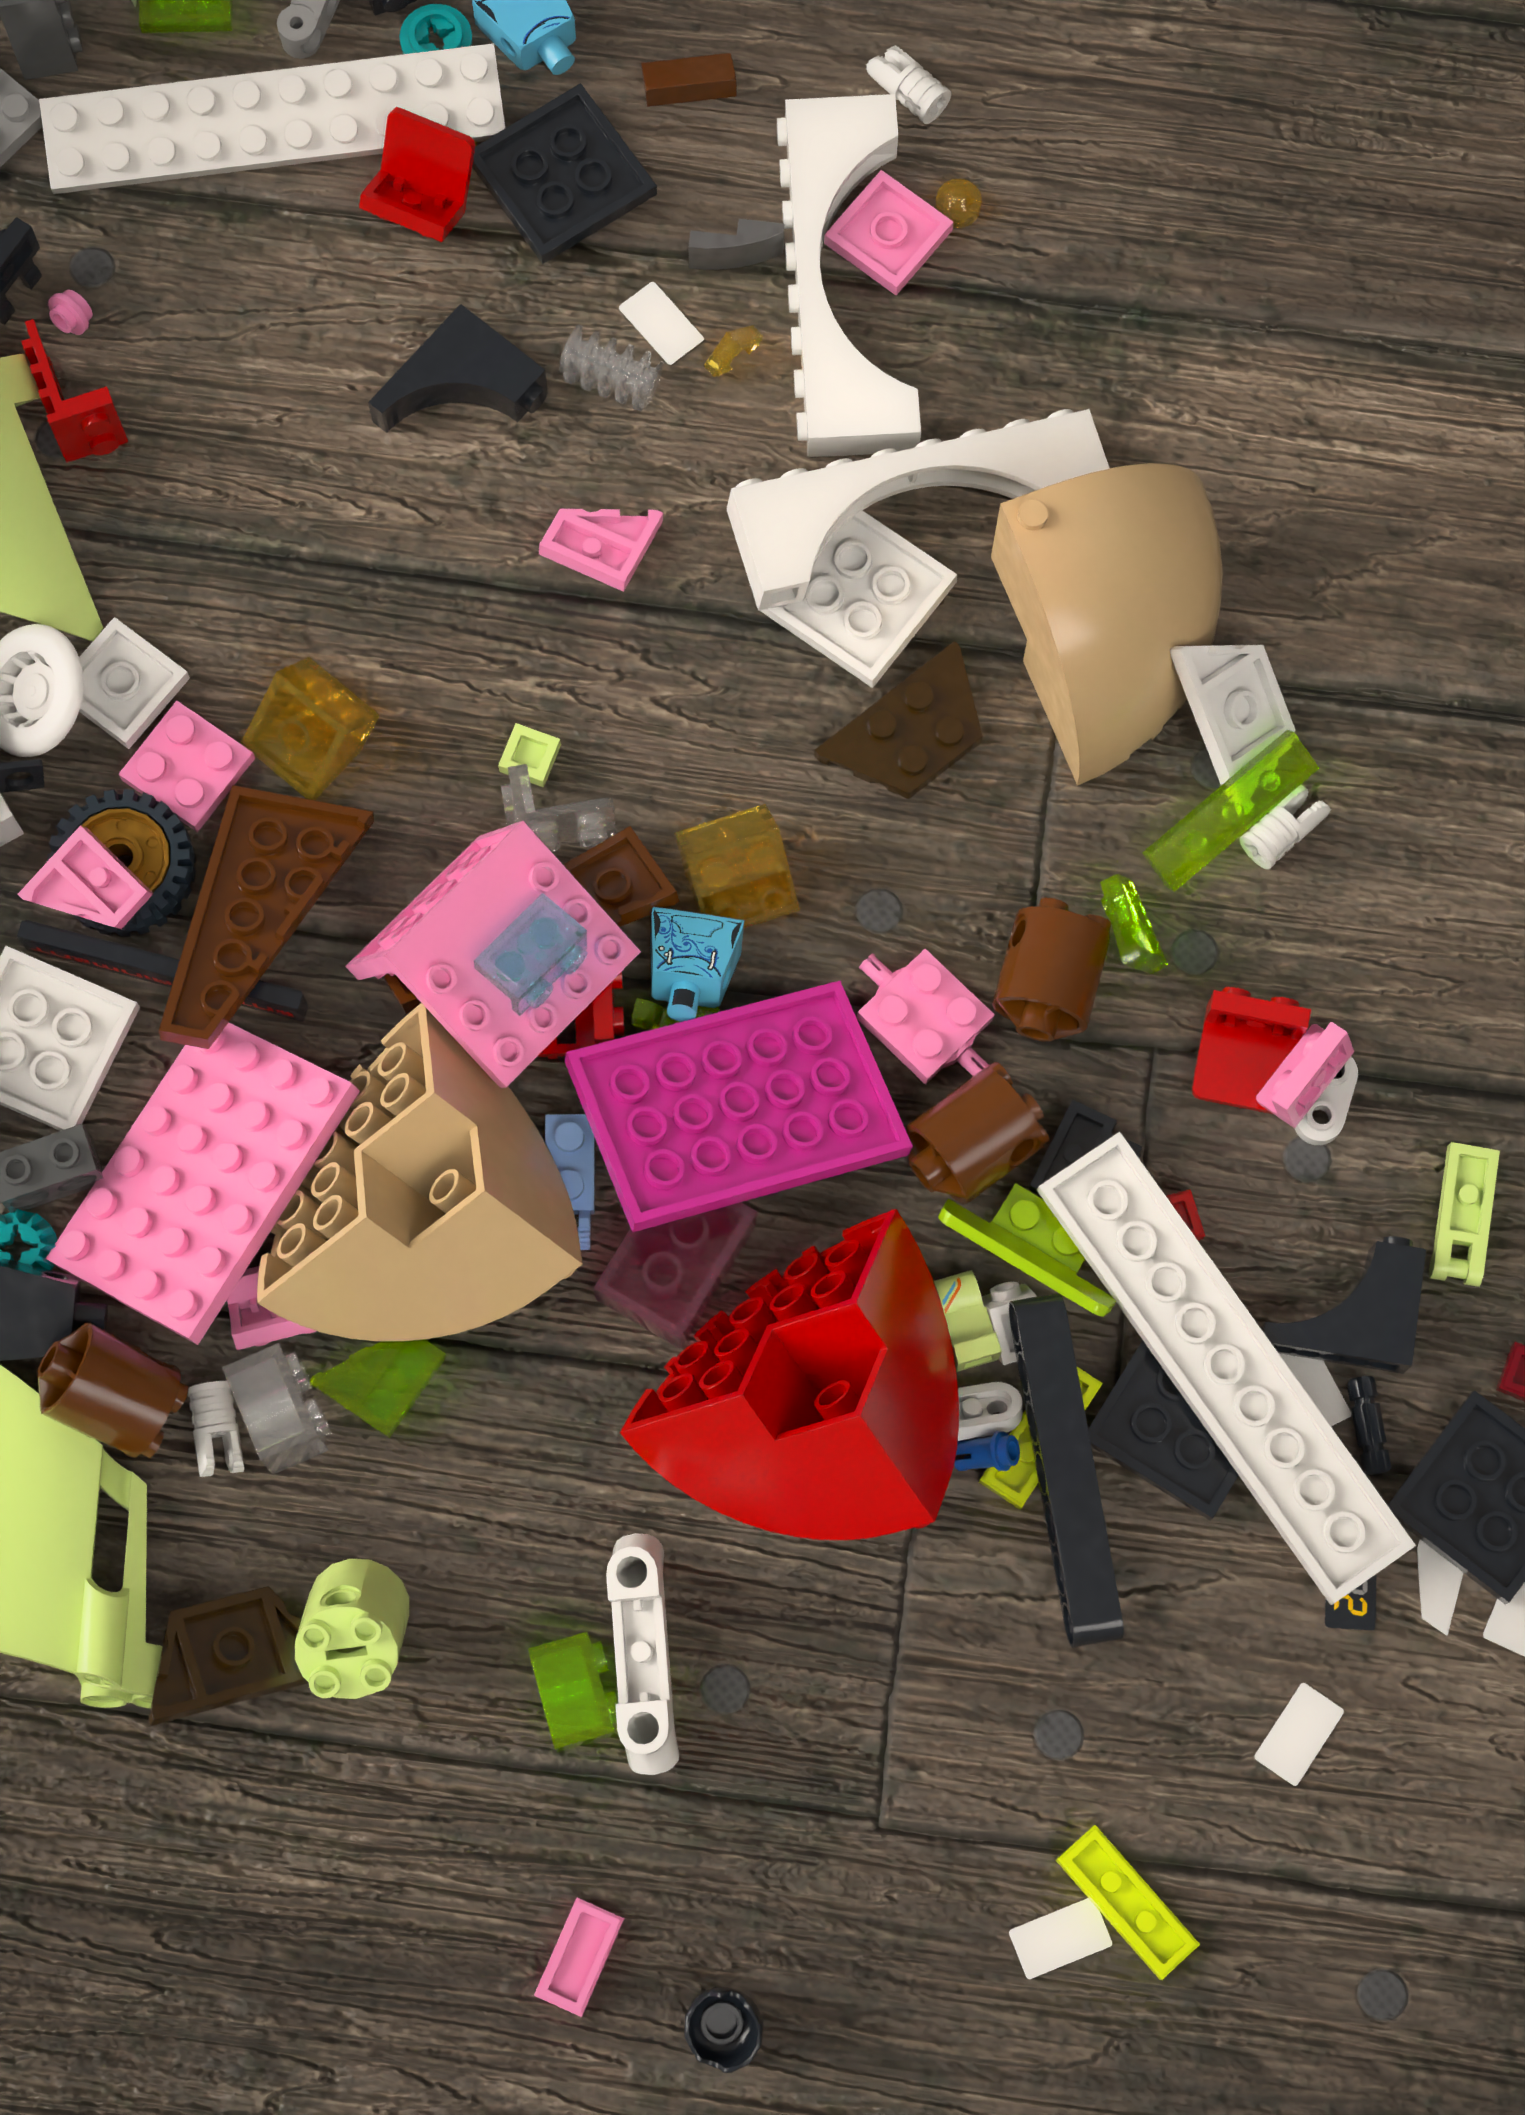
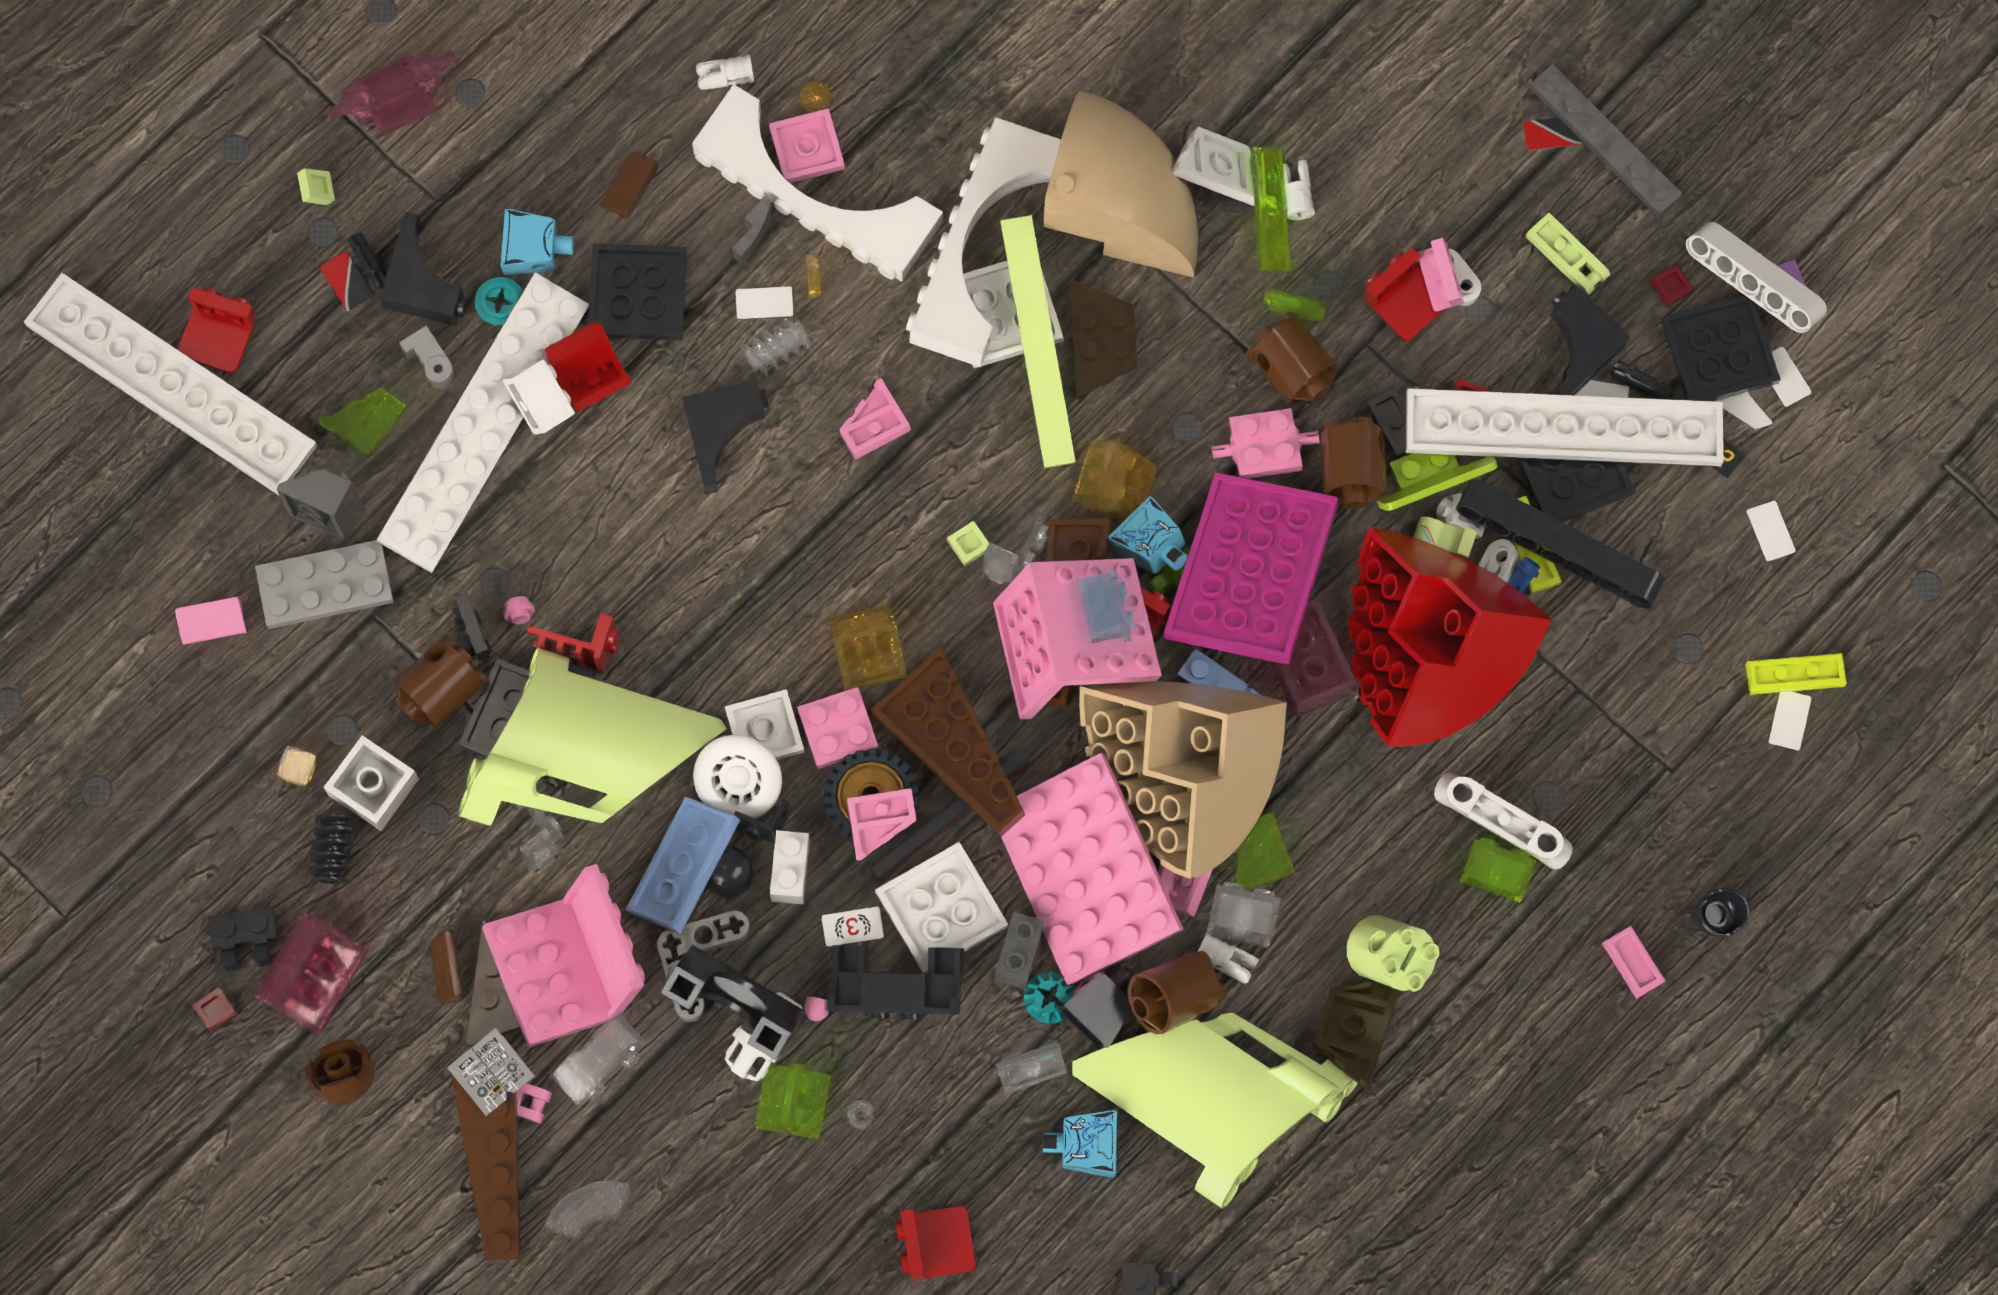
camera: 55 degrees left, 0 degrees up
(343, 149) = (539, 396): none -> white brick
(841, 653) = (1037, 341): none -> yellowish green tile

